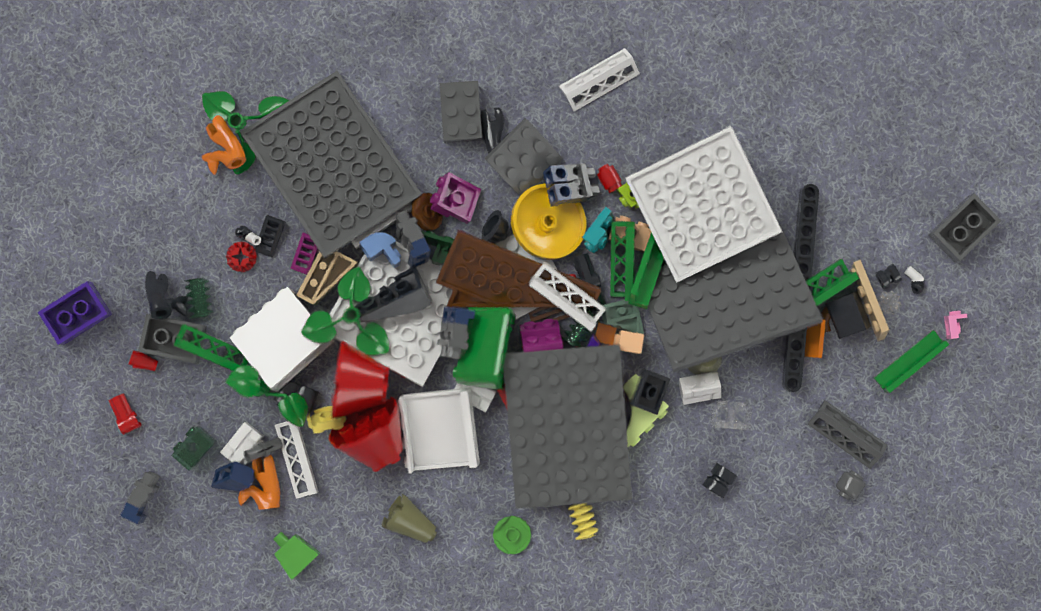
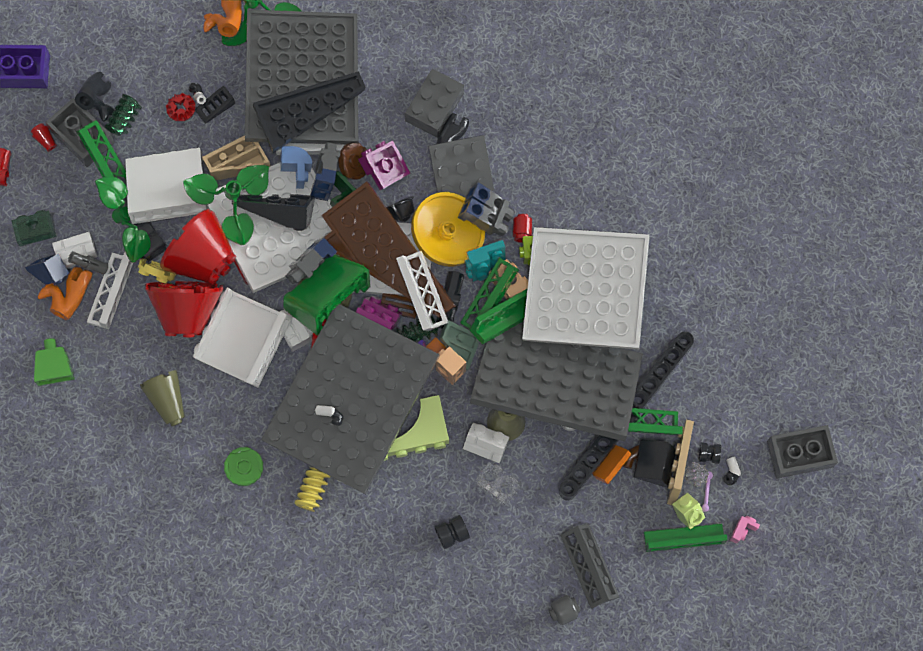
camera: 40 degrees right, 15 degrees down
(304, 236) = (230, 131): magenta slope -> none
(352, 203) = (295, 112): none -> black wing
(558, 453) = (337, 417): none -> arm
(598, 76) = (565, 141): white fence -> none
(649, 391) = (440, 413): black slope -> none
(902, 338) = (688, 511): none -> yellowish green brick
(910, 324) = (705, 507): none -> lavender hinge

